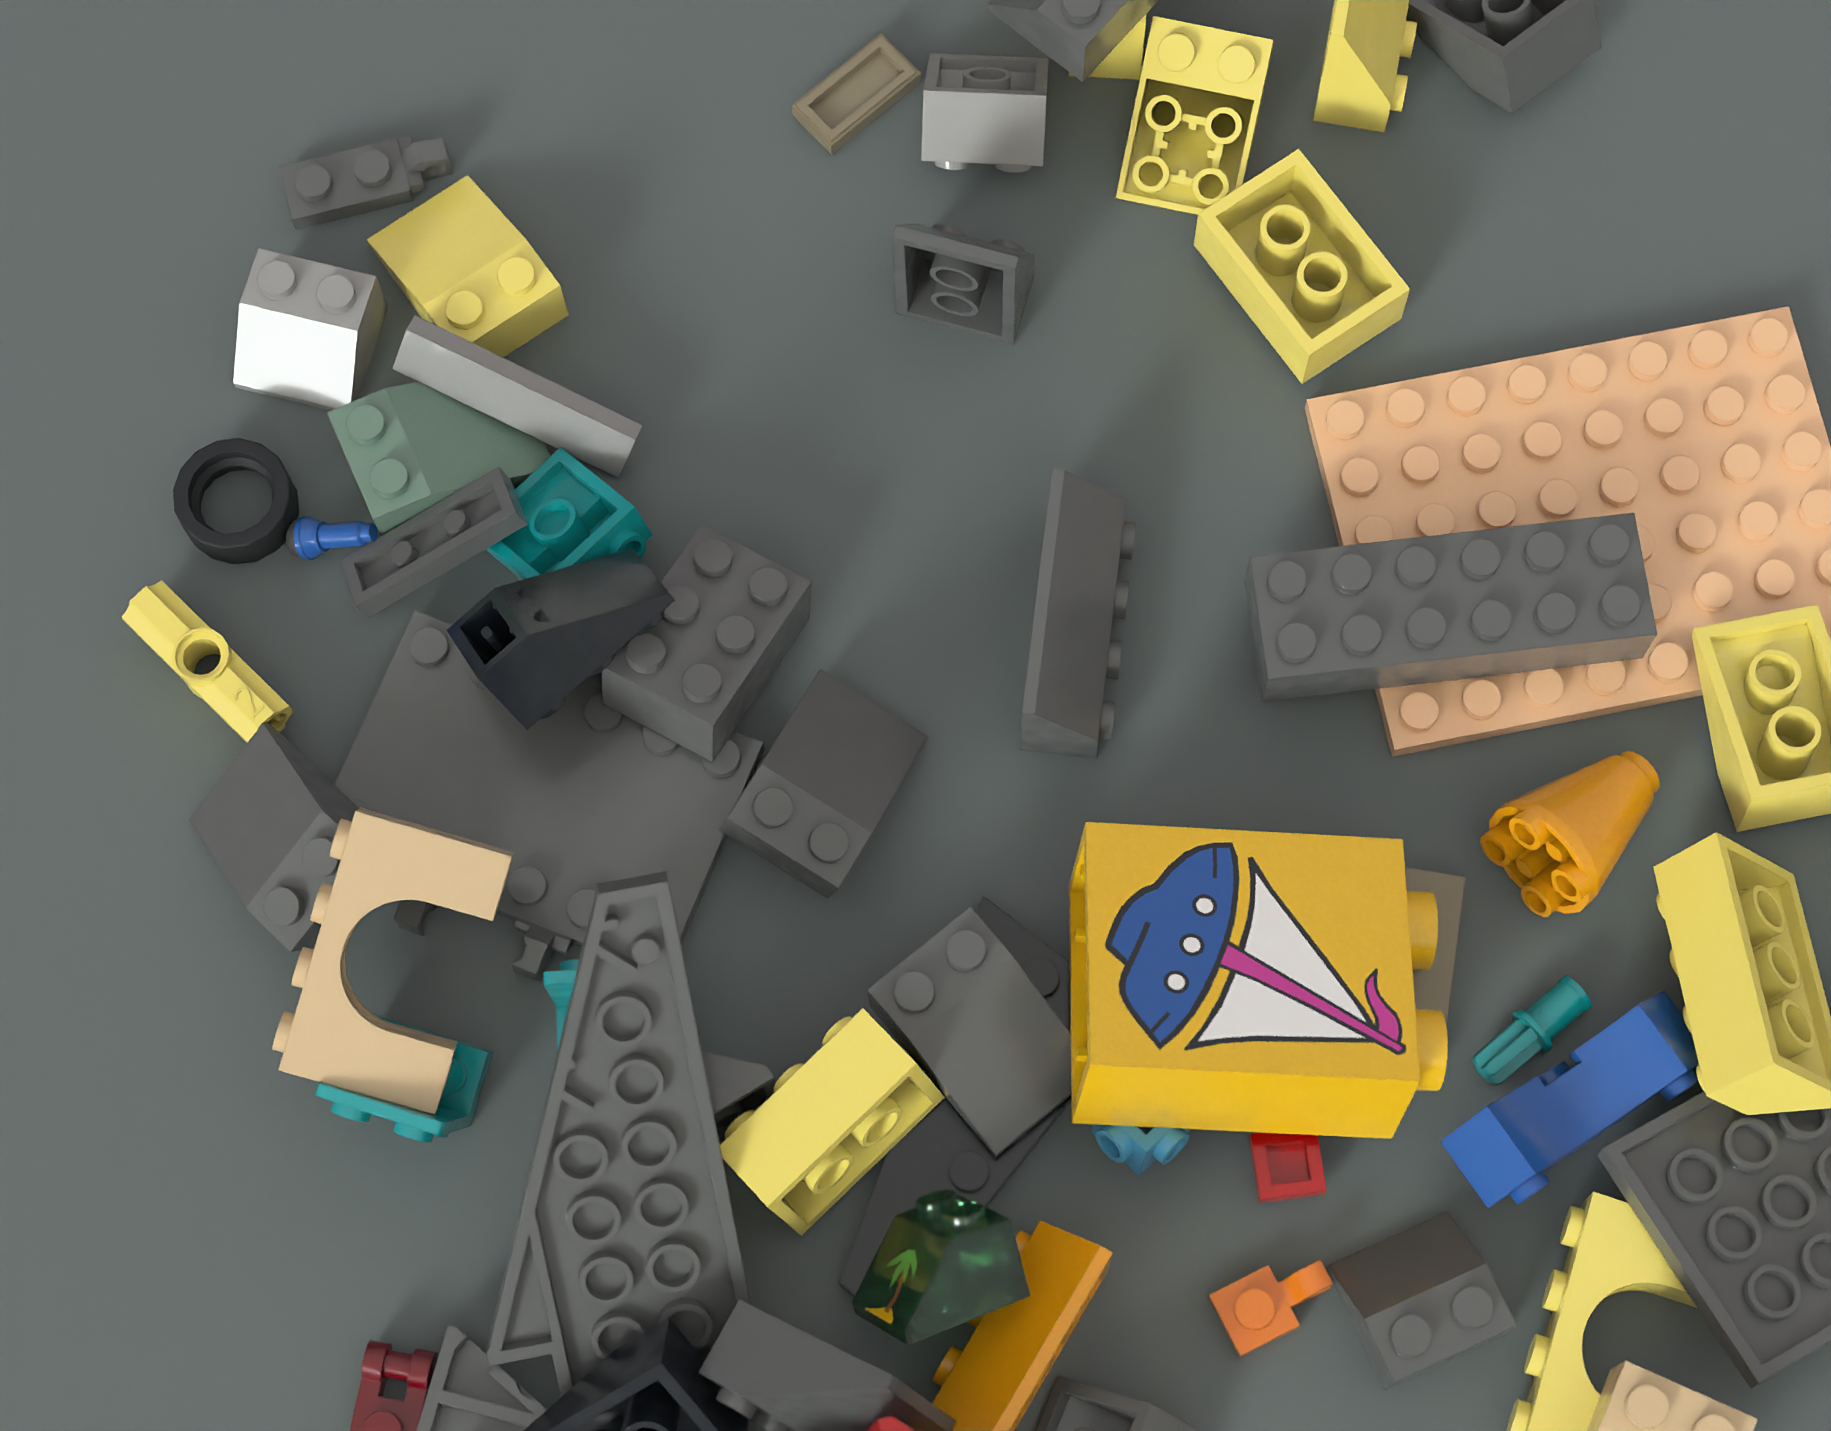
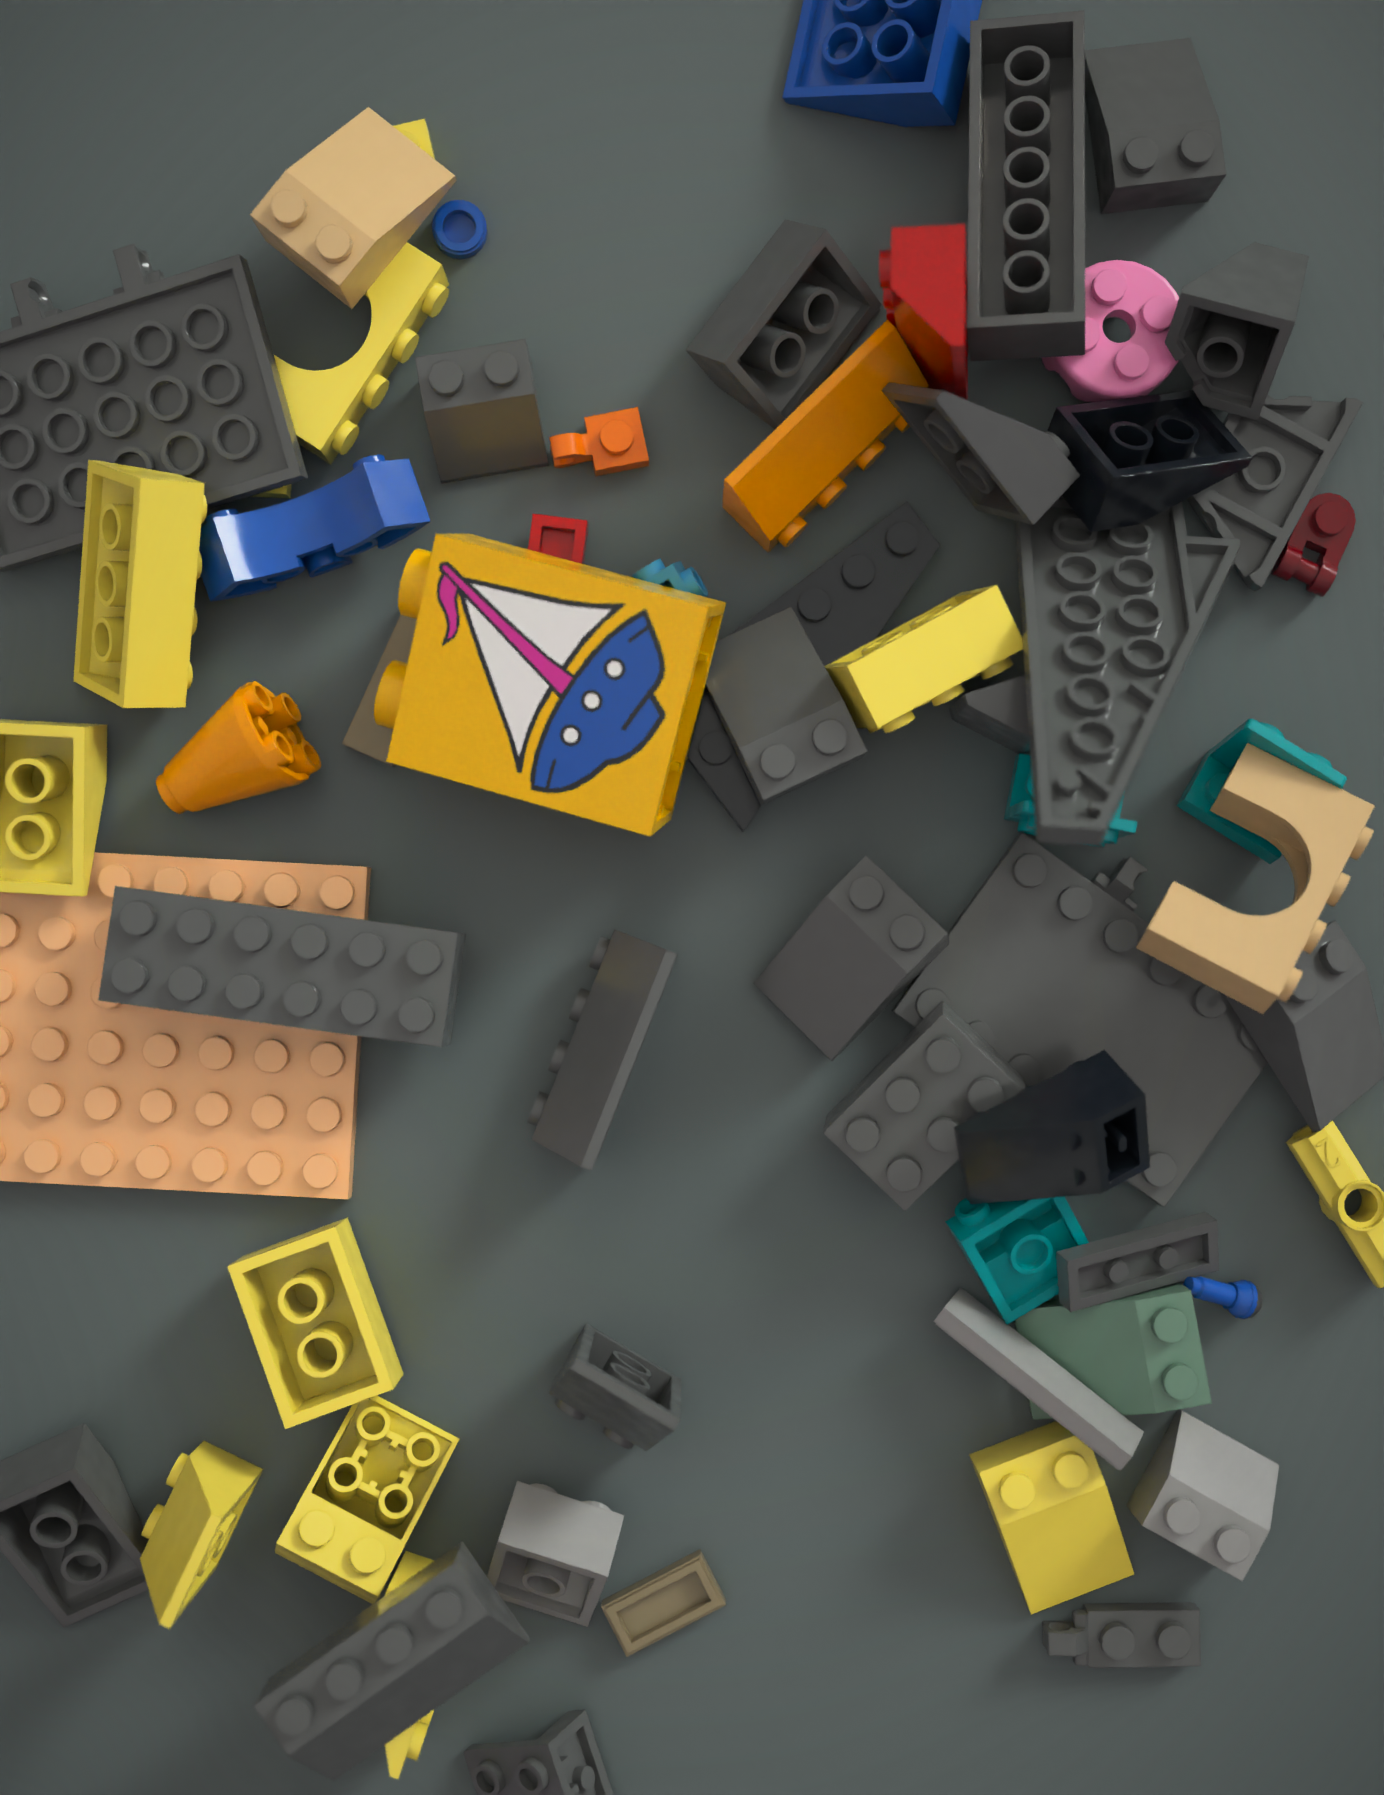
camera: 170 degrees left, 15 degrees up
(215, 462) = (1338, 1368): black tyre -> none
(941, 1268) = (865, 509): clear green slope -> none
(1531, 1031) = (328, 604): teal axle -> none

